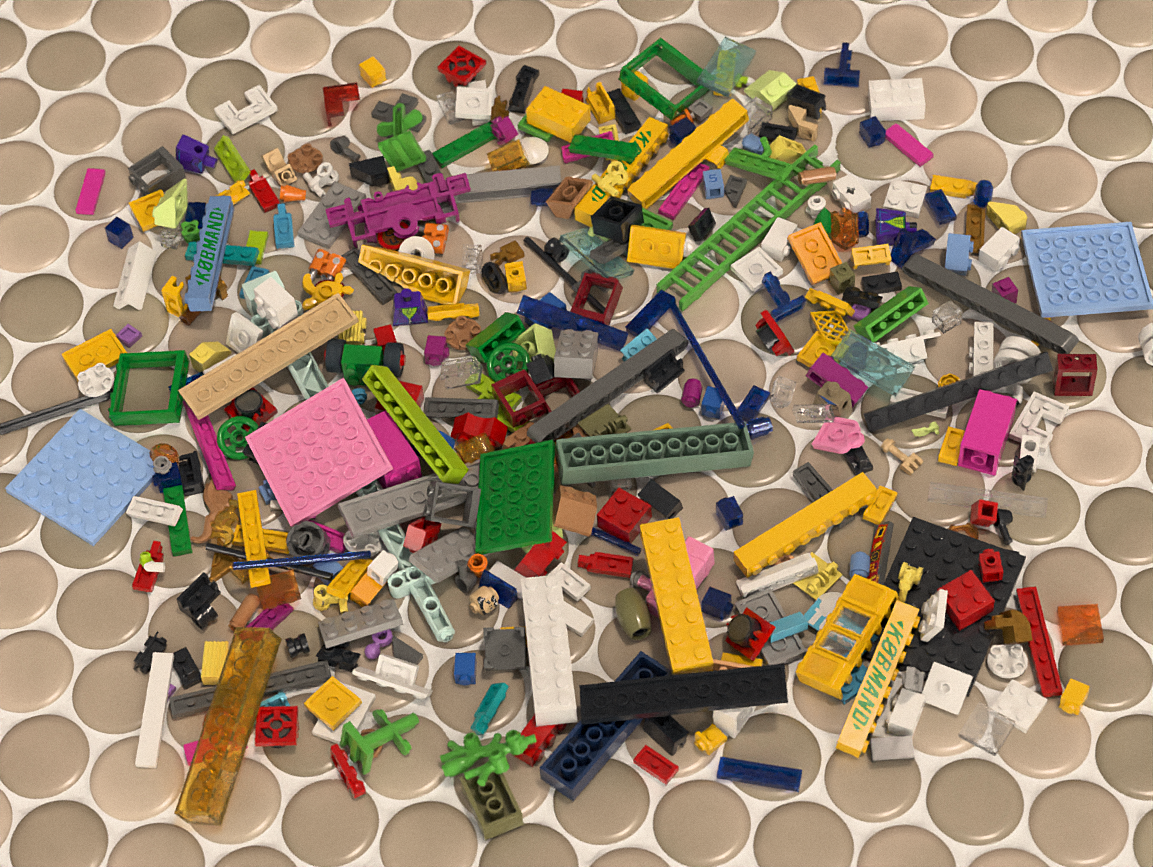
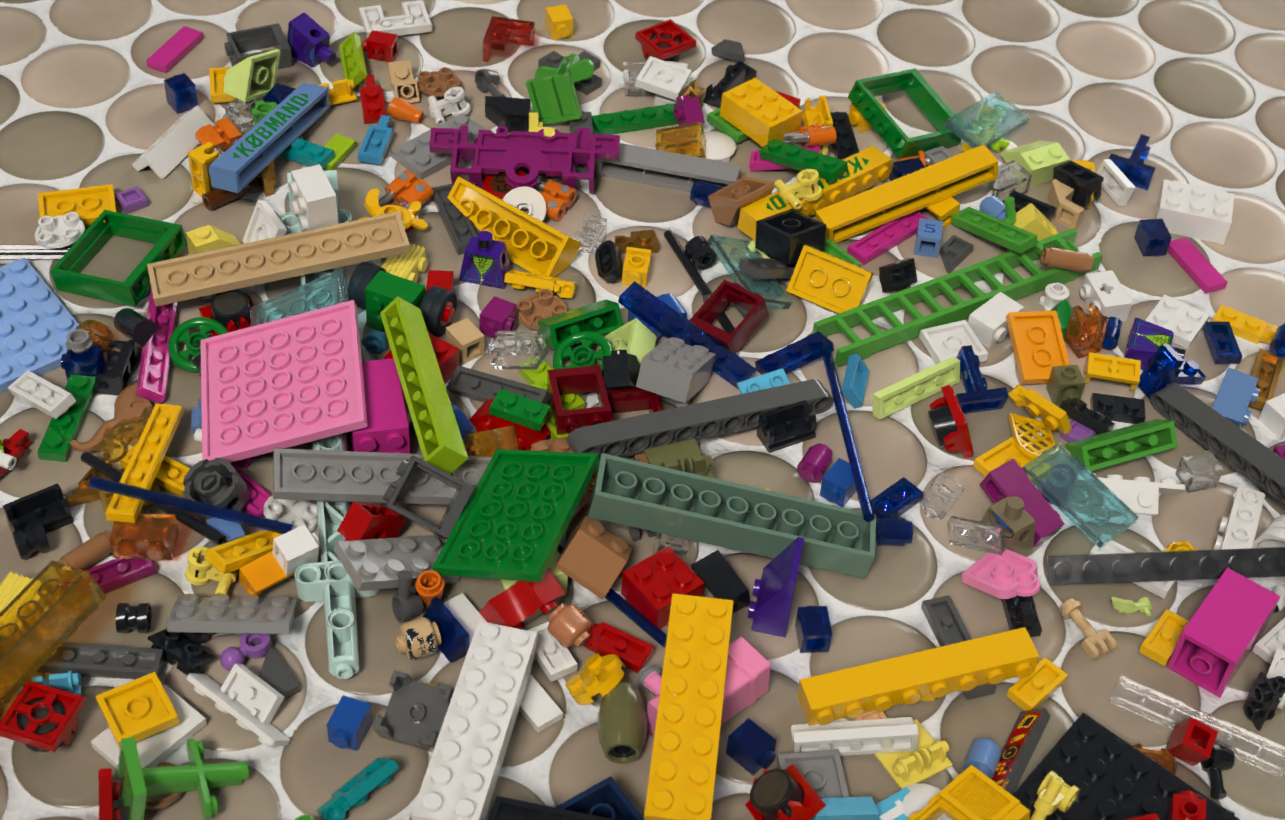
camera: 10 degrees right, 10 degrees down
(168, 261) = (221, 135): none -> orange piece
(190, 439) = (134, 326): none -> black brick
(247, 139) = (381, 46): none -> red brick
(300, 386) = (311, 296): none -> clear light blue tile
(420, 374) = (466, 338): none -> tan brick
(484, 420) = (519, 410): none -> green plate
(512, 56) = (729, 50): none -> dark grey tile
(577, 562) = (569, 625): none -> nougat head
(602, 122) = (812, 135): none -> orange piece
(607, 589) = (597, 677): none -> yellow plate
(698, 320) = (855, 380): none -> dark azure tile
(699, 496) = (776, 592): none -> dark purple slope
(741, 312) = (916, 387): none -> yellowish green plate
(833, 91) = (1115, 182): none -> white plate

